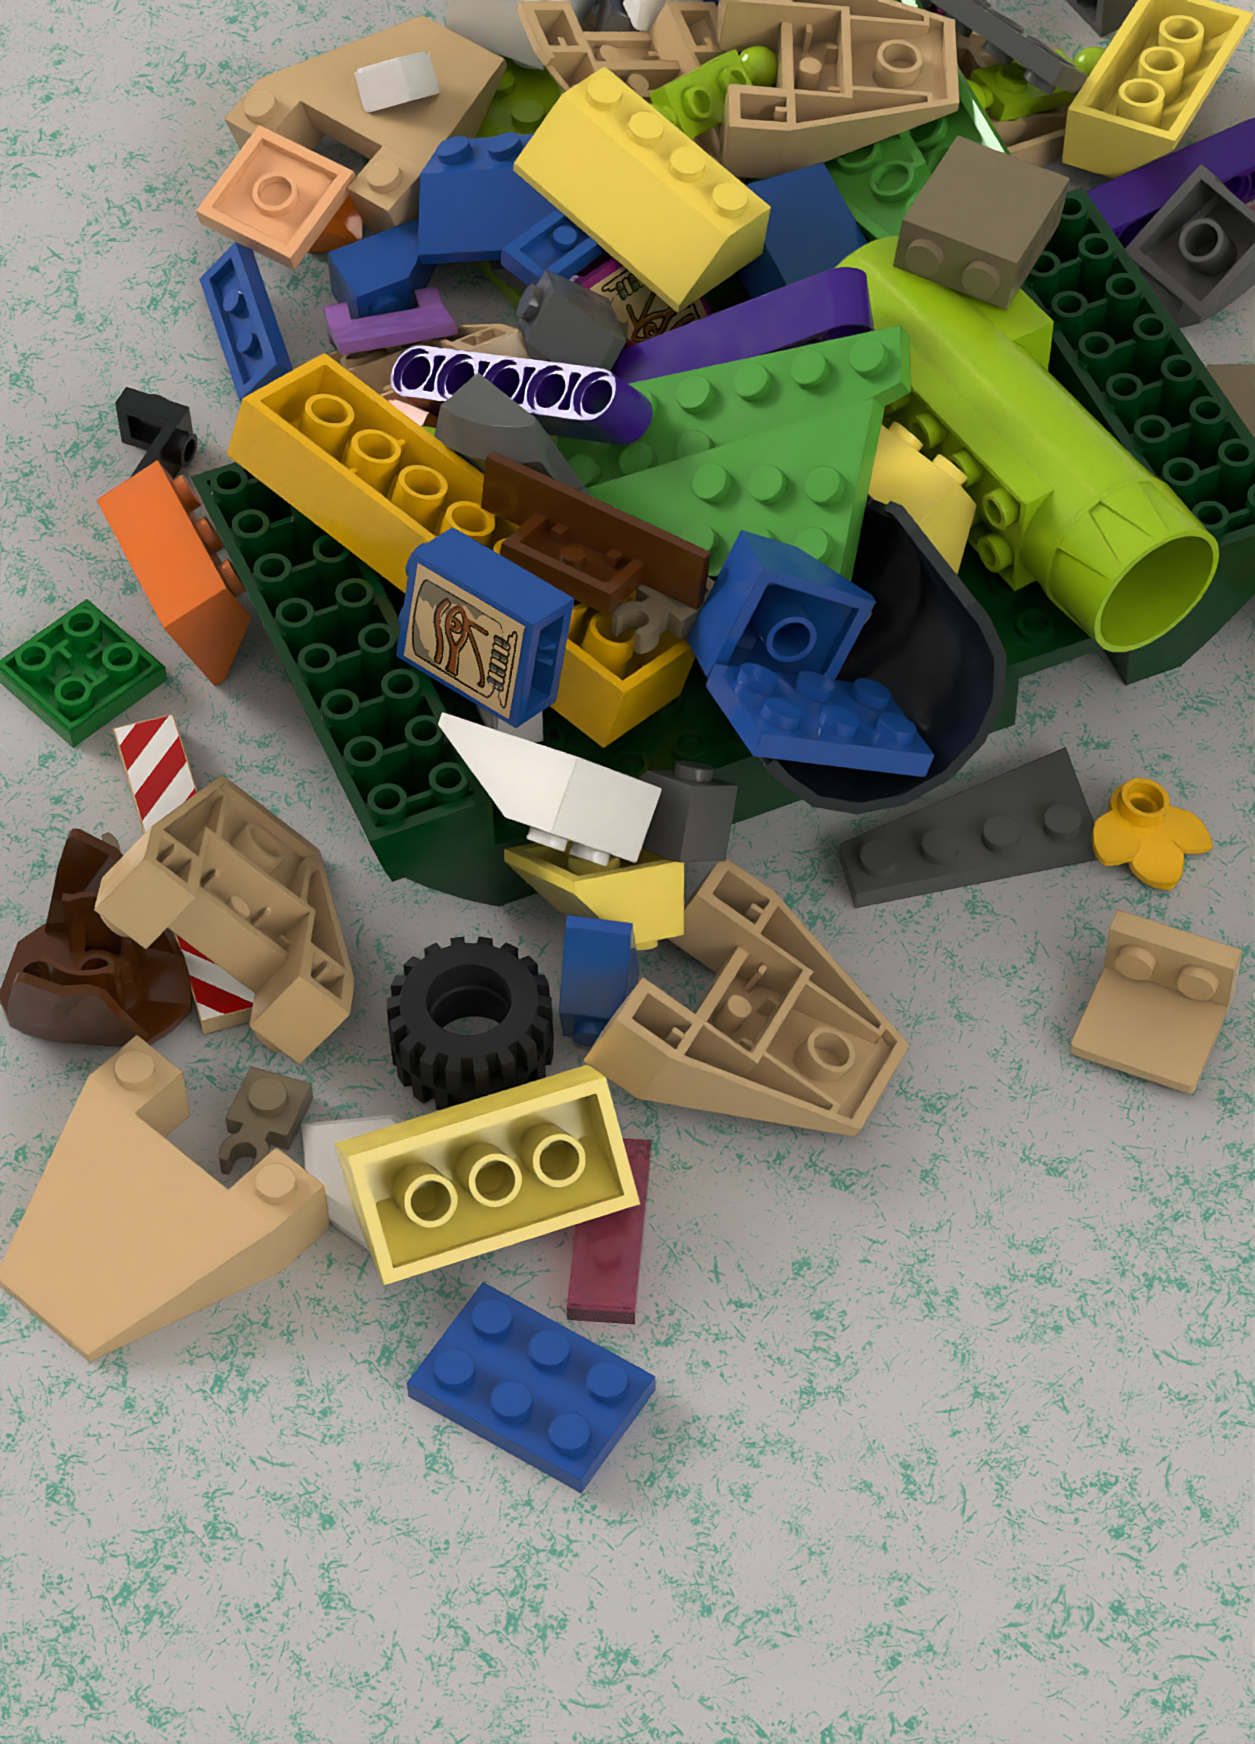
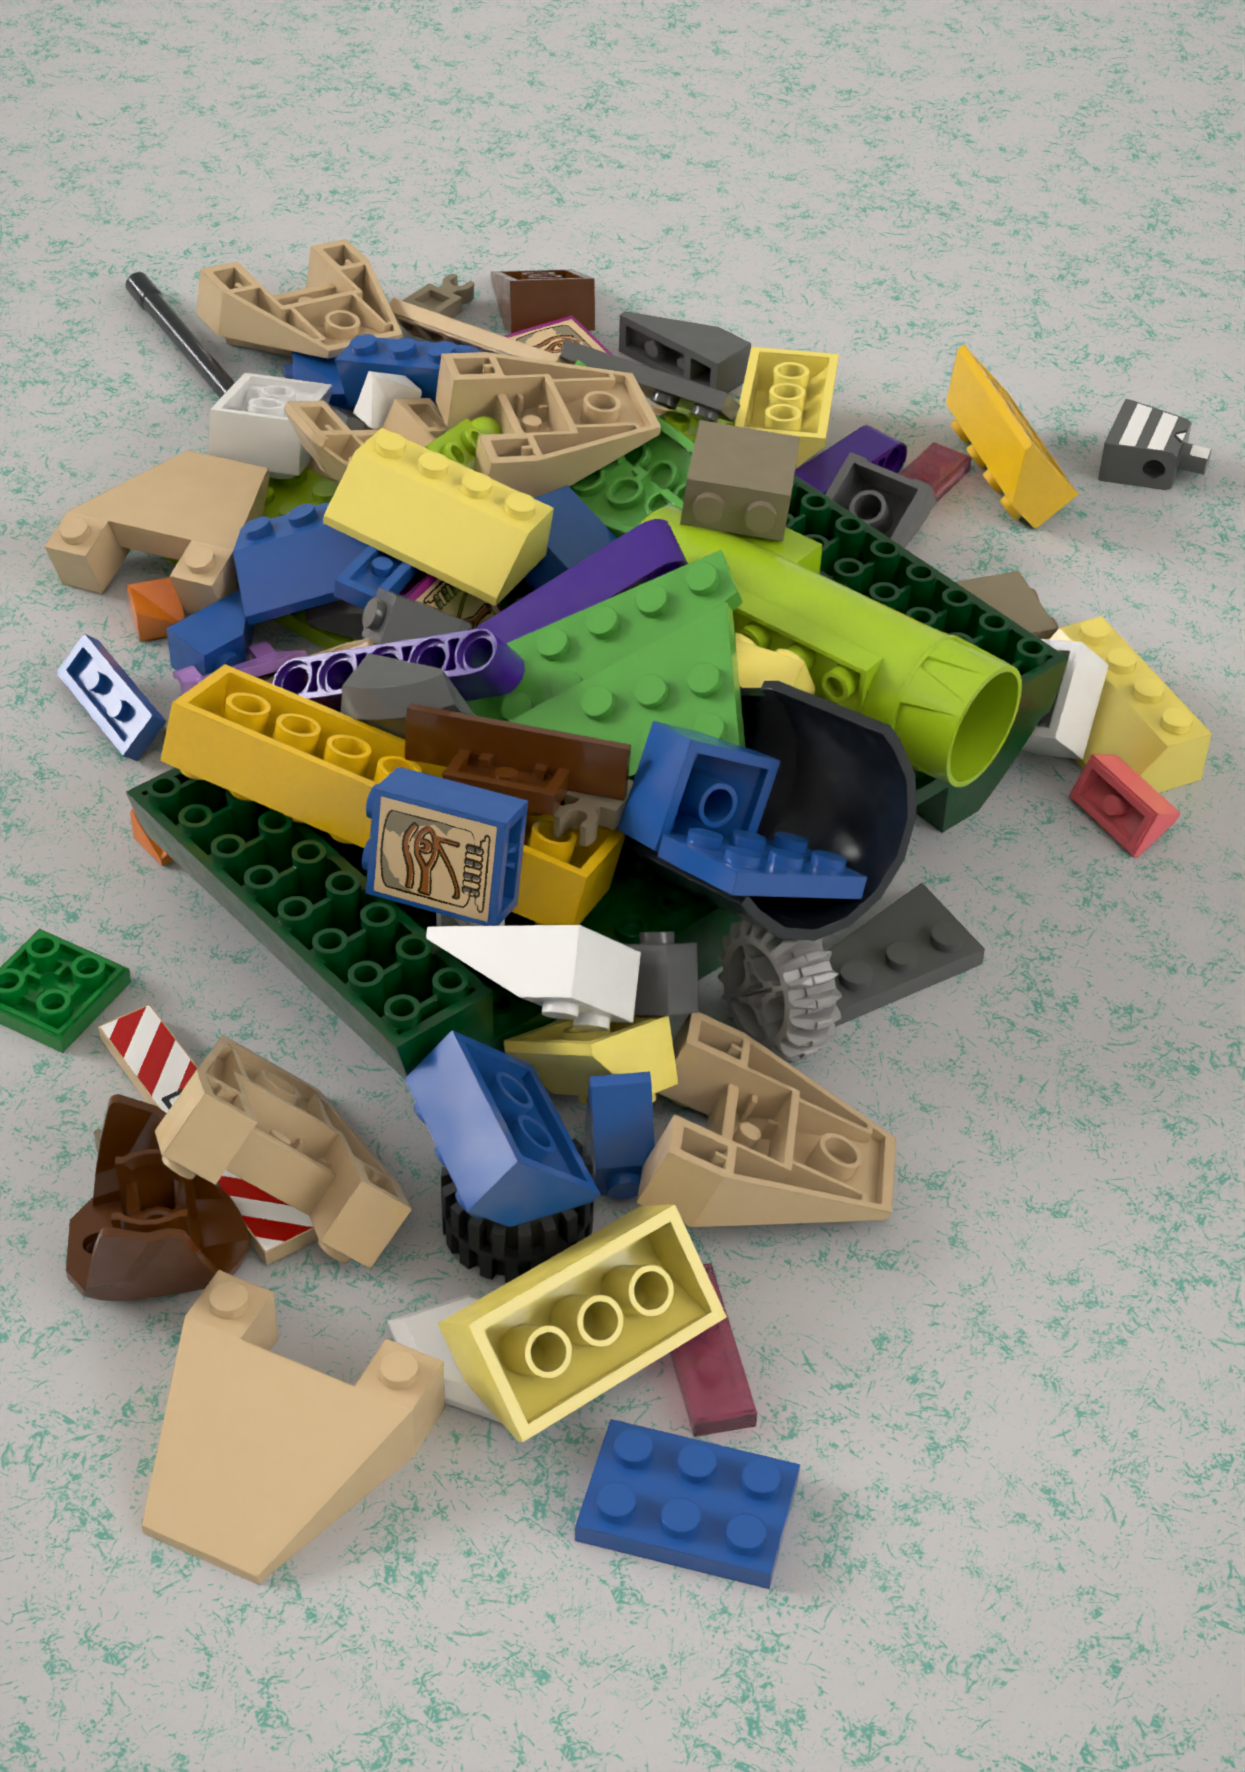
camera: 20 degrees left, 10 degrees down
(158, 427) = (64, 787): black bracket -> none
(180, 566) = (127, 878): orange slope -> none
(263, 1115) = (351, 1323): dark tan plate -> none
(276, 197) = (109, 594): light nougat plate -> none
(396, 81) = (187, 490): white slope -> none
(457, 955) = (498, 1133): none -> blue slope
(830, 864) = (779, 990): none -> light grey gear
(1148, 833) = (1014, 933): yellow plate -> none
(1158, 1002) = (1089, 1055): tan bracket -> none

